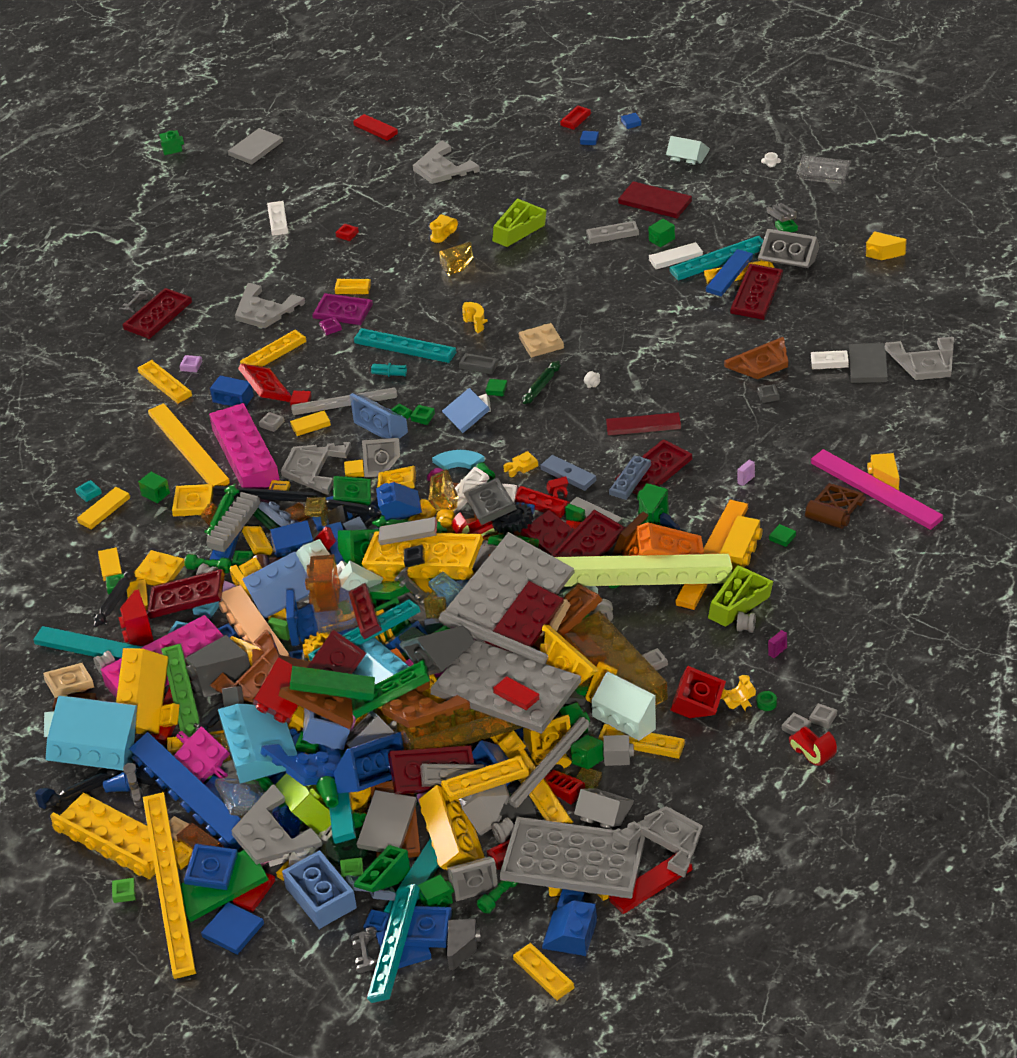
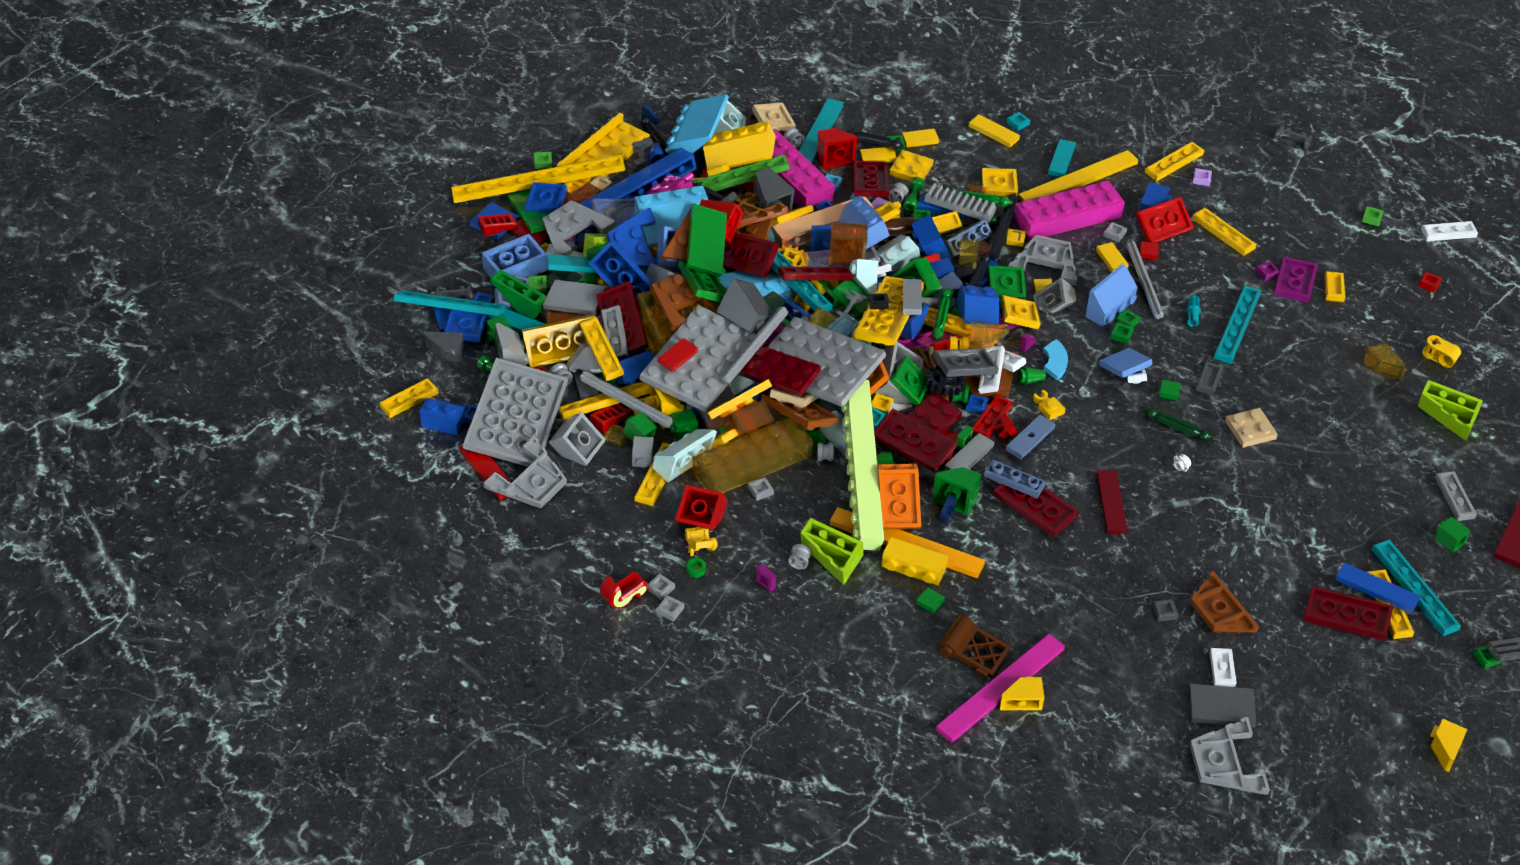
camera: 85 degrees right, 5 degrees up
(154, 458) = (1062, 158): none -> teal tile
(154, 487) = (1012, 154): green brick -> none
(157, 313) = (1280, 152): dark red tile -> none
(253, 927) = (492, 223): none -> red slope
(258, 258) = (1372, 216): none -> bright green plate
(261, 311) = (1288, 220): light grey wing -> none
(474, 313) = (1280, 375): yellow piece -> none
(627, 533) = (926, 470): reddish brown tile -> none
(675, 255) = (1415, 548): white tile -> none
(746, 472) = (1025, 575): lavender tile -> none
(789, 248) = (1423, 645): light grey slope -> none

